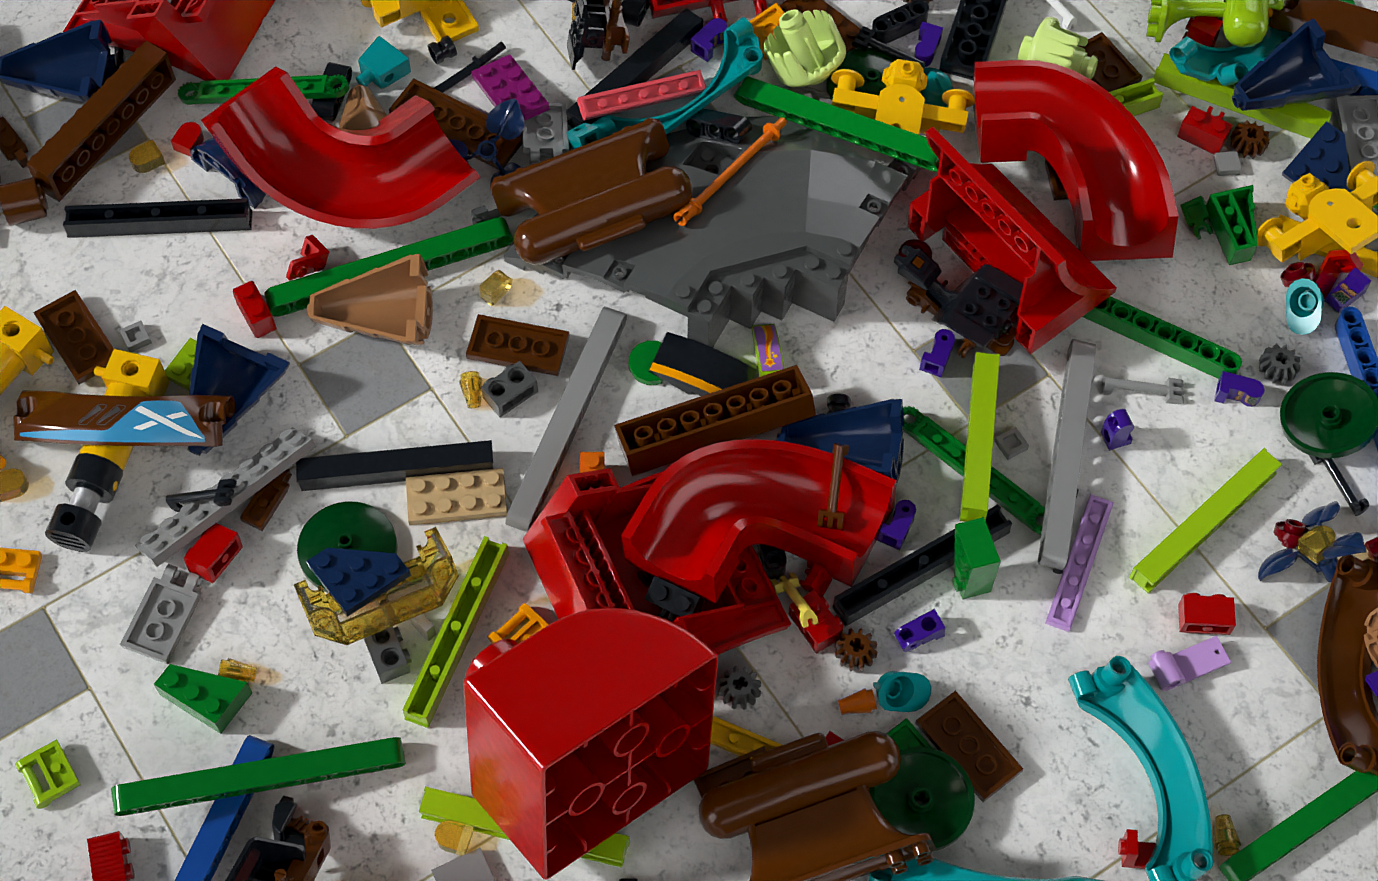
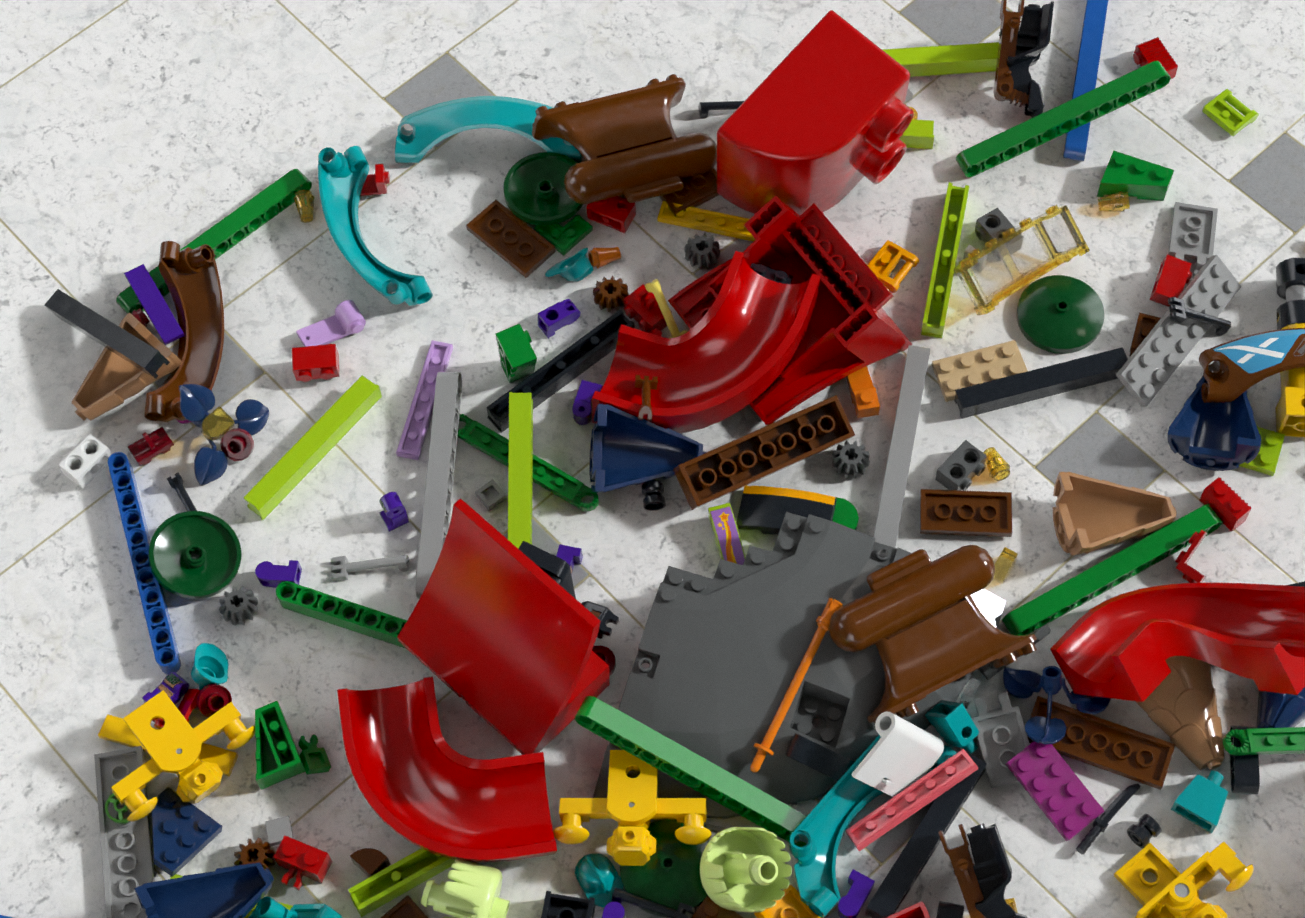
camera: 175 degrees right, 0 degrees up
(357, 575) = (1041, 274): dark blue plate -> none
(617, 408) = (851, 451): none -> dark grey gear
(645, 106) = (900, 755): none -> white door
(1147, 119) = (370, 861): none -> reddish brown brick

